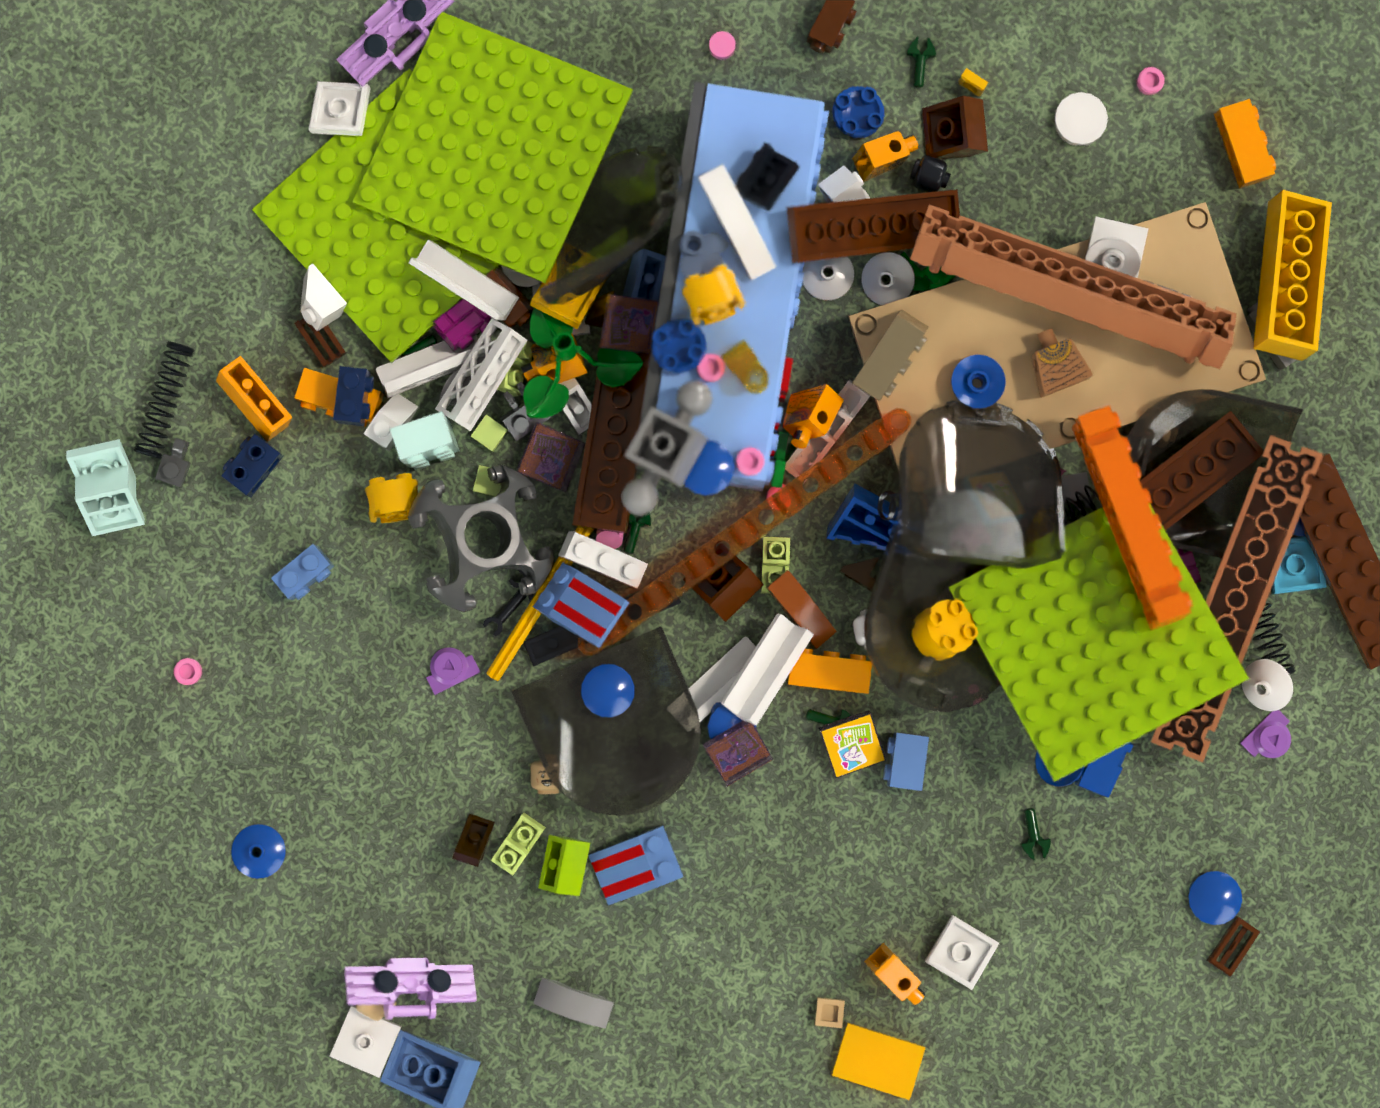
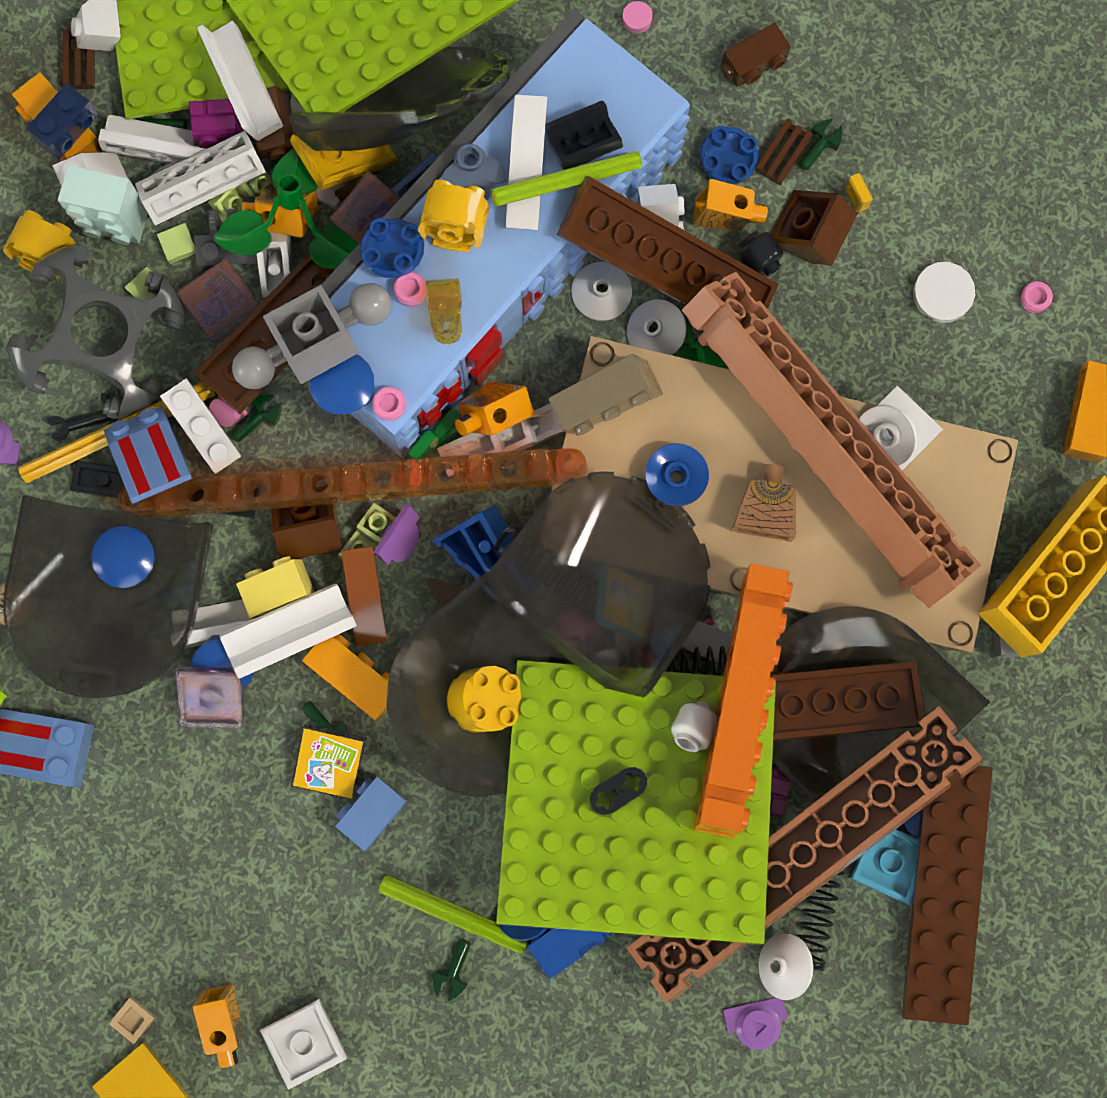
camera: 35 degrees right, 5 degrees down
(734, 644) = (275, 587): none -> light yellow brick
(775, 217) = (565, 178): none -> lime axle
(799, 550) = (399, 537): none -> medium lavender piece
(897, 61) = (796, 131): none -> reddish brown tile
(1005, 797) = (449, 913): none -> lime axle
(1088, 639) = (622, 798): none -> black beam
(1107, 556) = (694, 726): none -> white head

